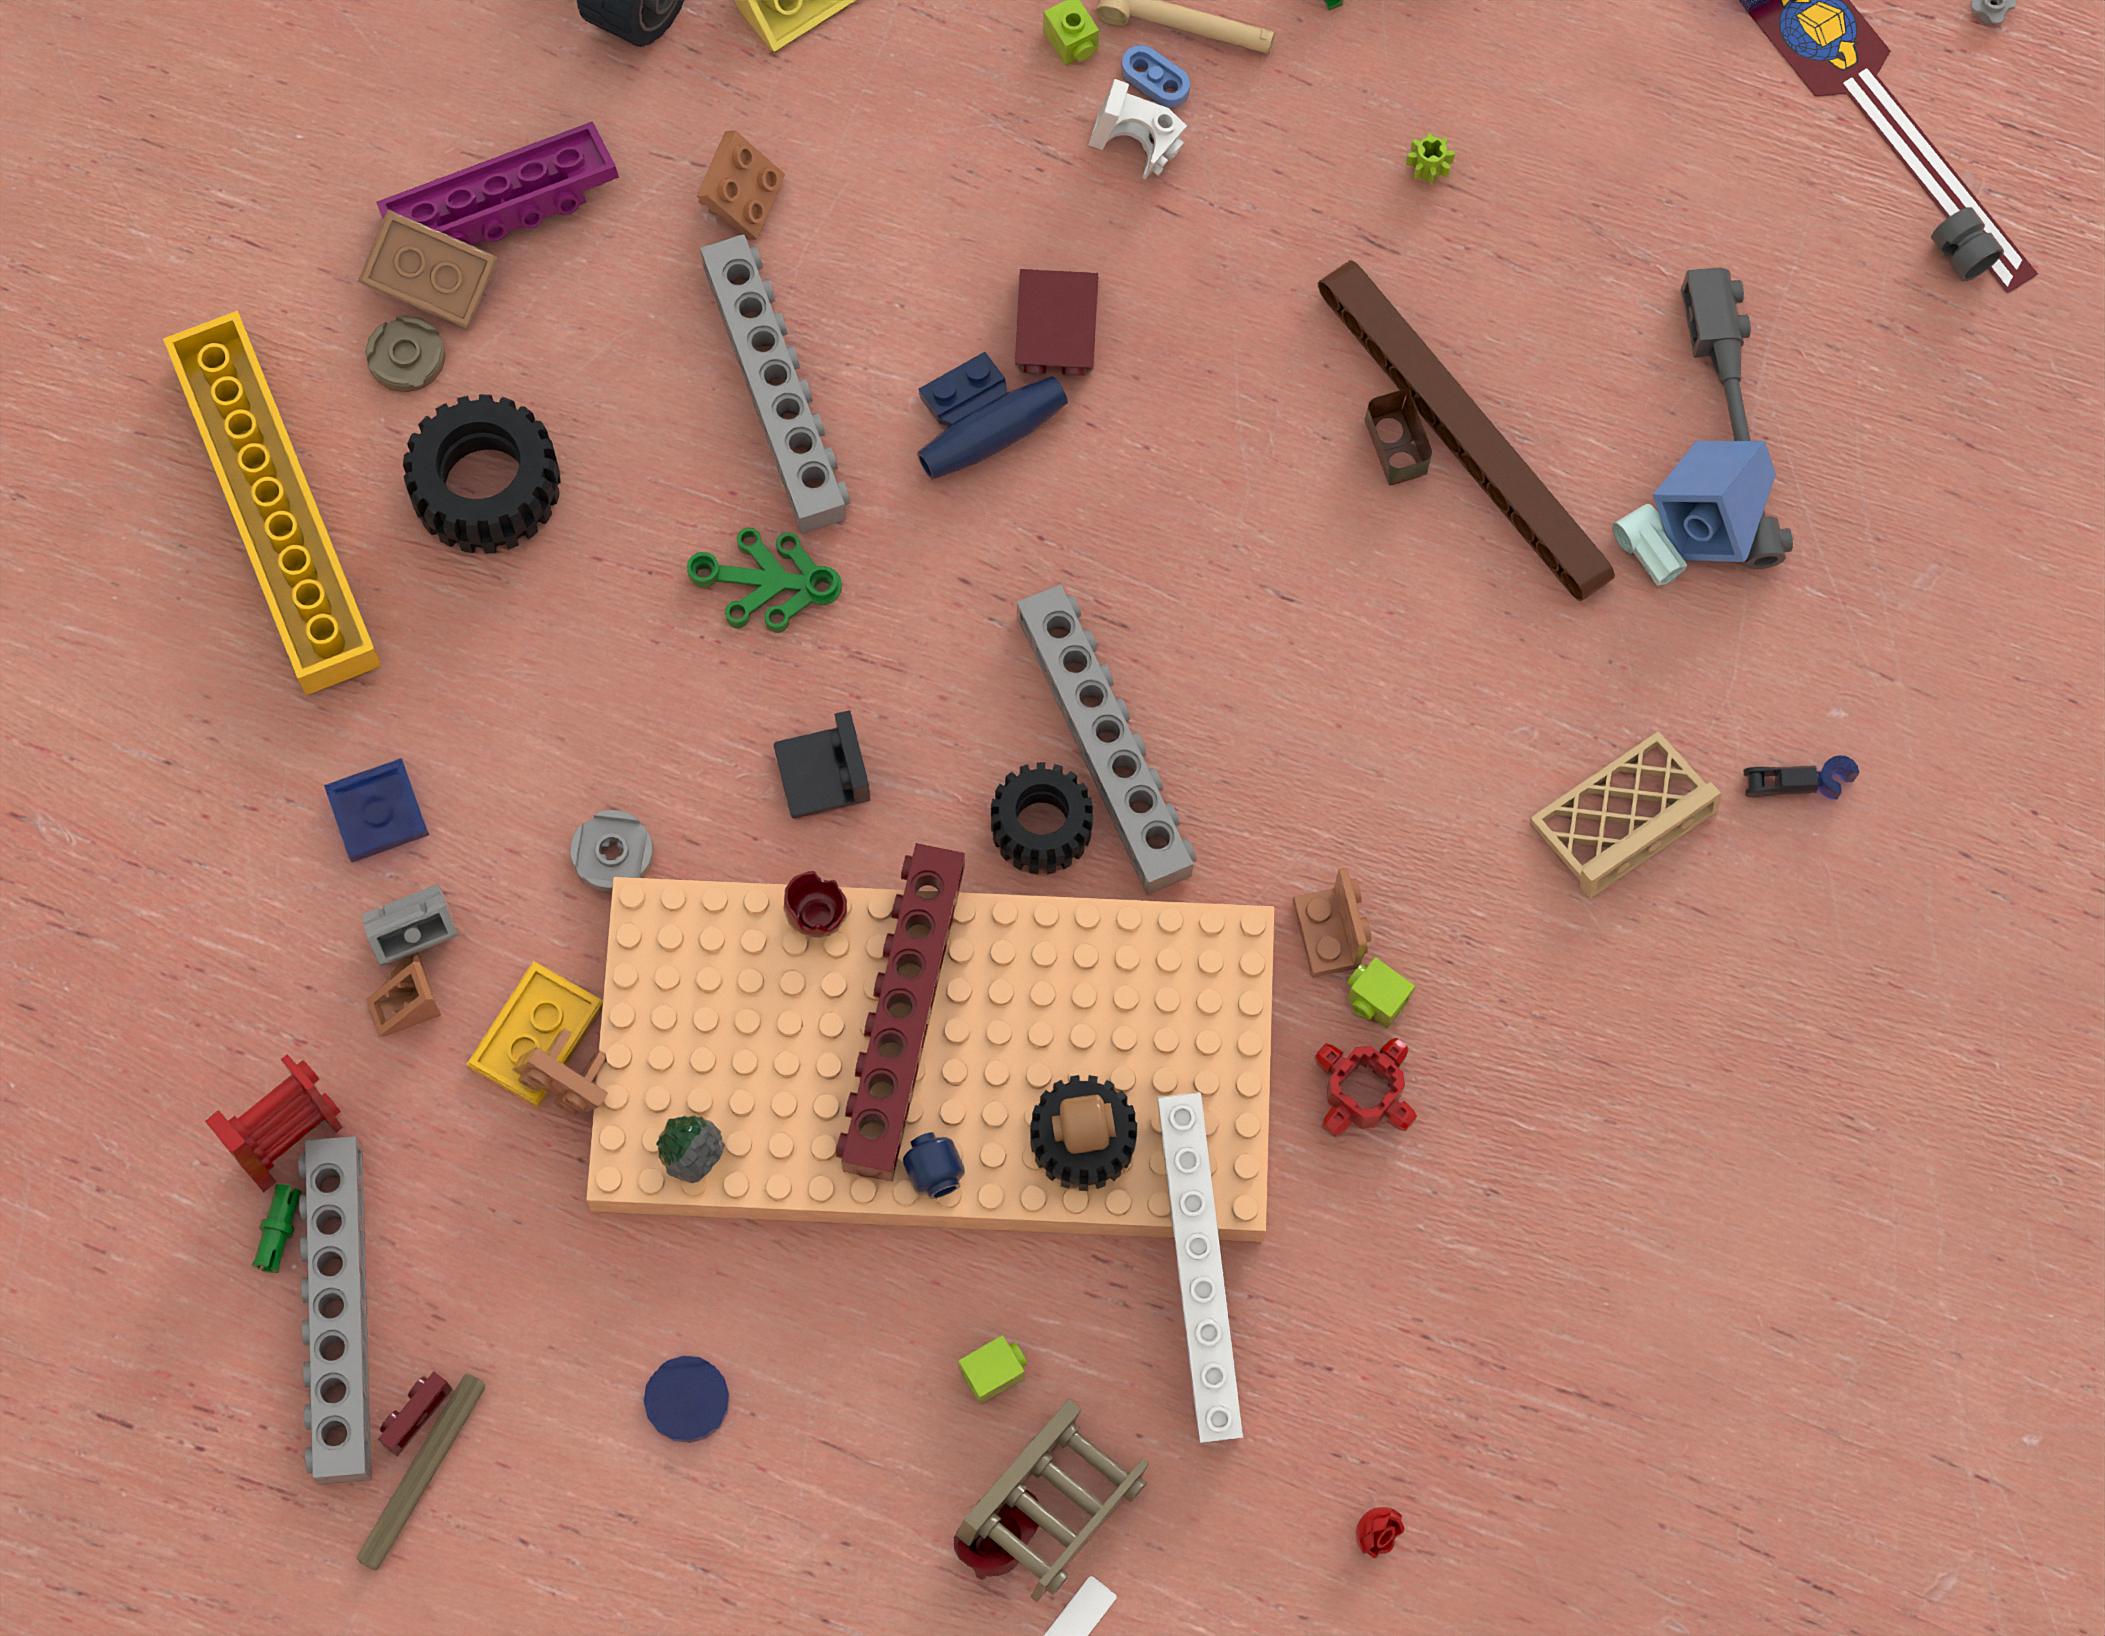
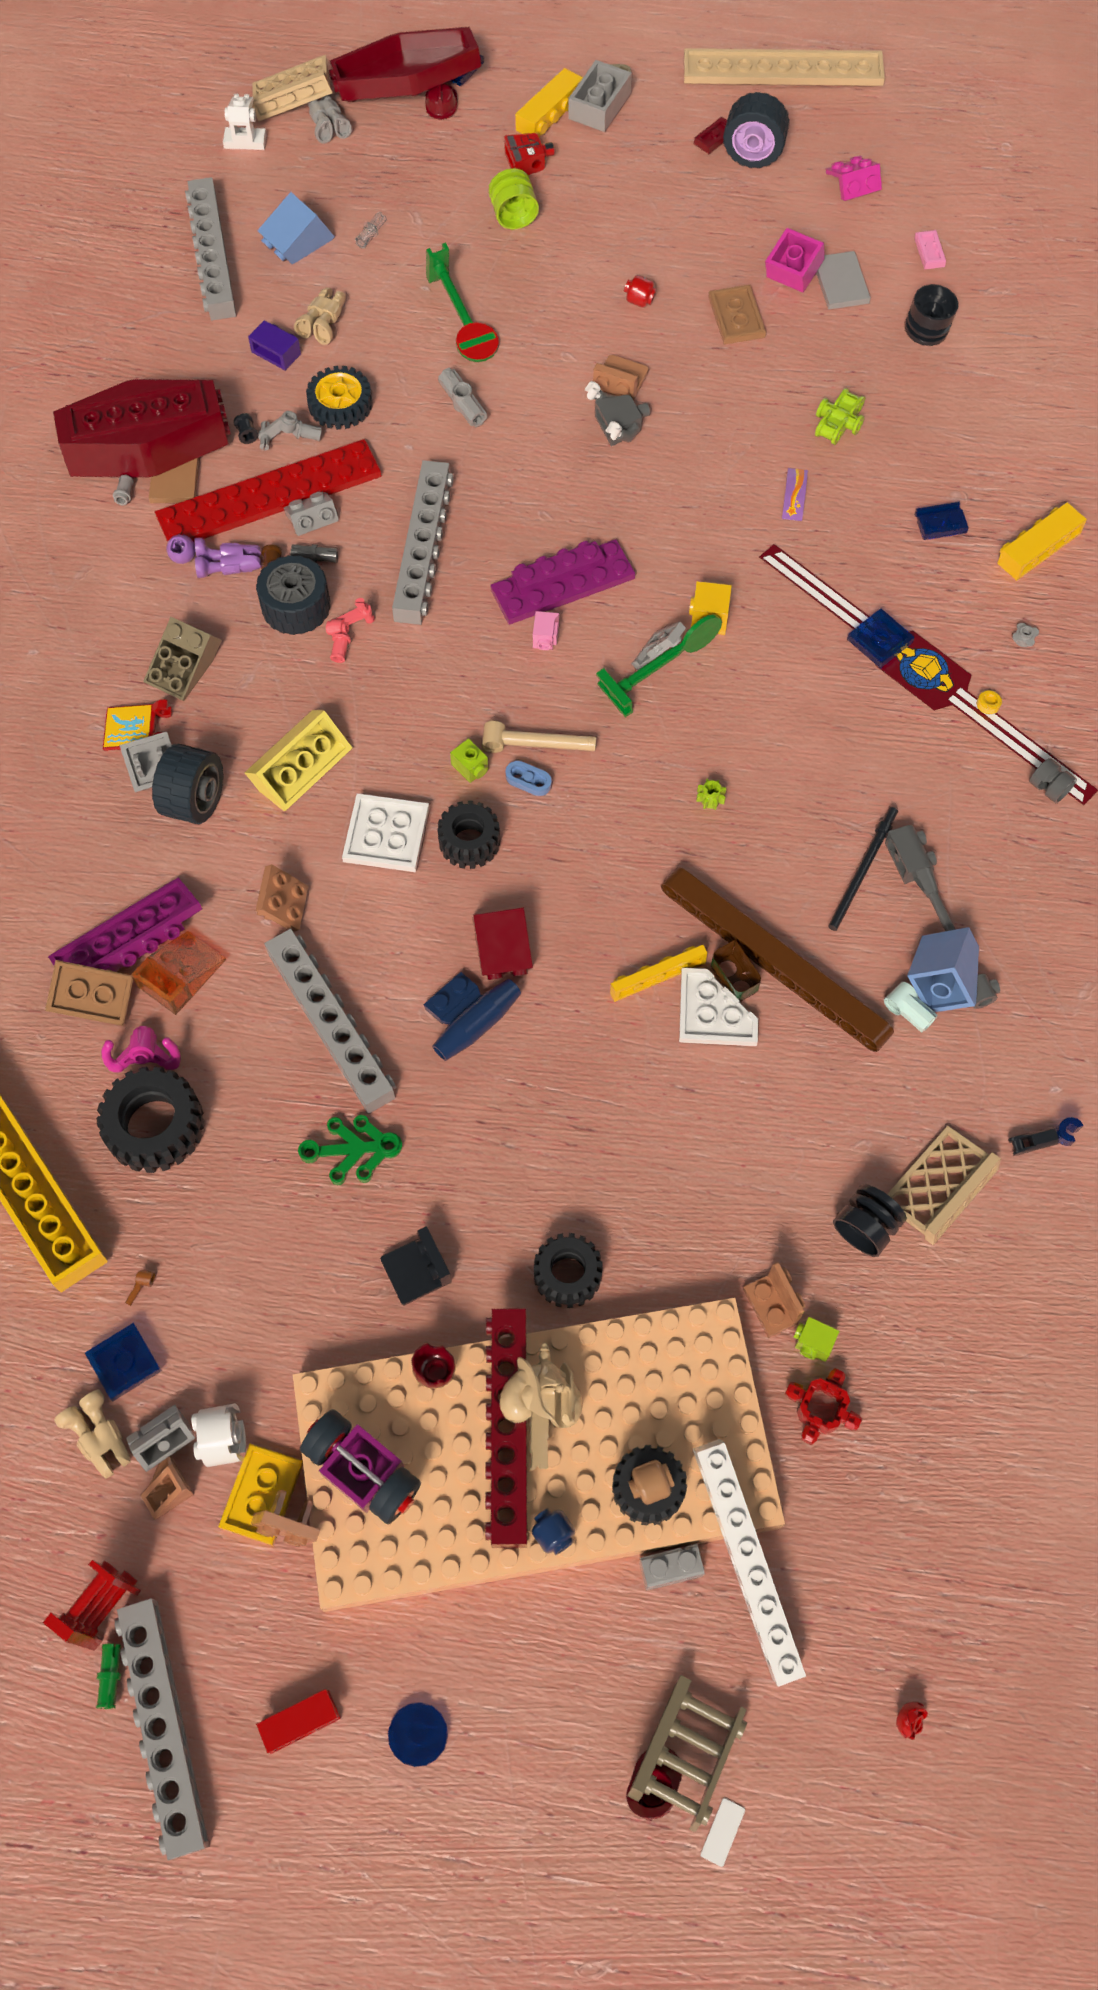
camera: 10 degrees left, 5 degrees down
(323, 912) = (102, 1439): none -> tan piece
(405, 354) = (82, 1050): dark tan tile -> none
(421, 1472) = (243, 1835): dark tan axle -> none
(424, 1400) = (223, 1803): dark red plate -> none
(426, 699) = (143, 1278): none -> dark orange hand
(488, 371) = (142, 1050): none -> dark pink piece
(492, 939) = (219, 1435): none -> white brick
(525, 1343) = (298, 1721): none -> red piece
(563, 263) = (177, 971): none -> clear orange slope
(597, 835) = (276, 1343): light grey plate -> none
(681, 1017) = (360, 1467): none -> brick
(690, 1147) = (384, 1557): piece -> none
(919, 116) = (385, 832): none -> white plate
(963, 977) = (542, 1395): none -> tan hair
(993, 1368) = (624, 1664): lime brick -> none
(1043, 118) = (463, 818): none -> black tyre
(1091, 1256) = (671, 1567): none -> light grey brick
(1141, 120) = (526, 806): white tile -> none
(1153, 866) = (647, 1286): light grey brick -> none
(1293, 412) = (664, 970): none -> yellow plate
(1349, 490) = (712, 1012): none -> white plate
(1501, 840) = (869, 1220): none -> black wheel
(1679, 268) = (881, 833): none -> black bar
(1904, 100) = (989, 702): none -> yellow tile

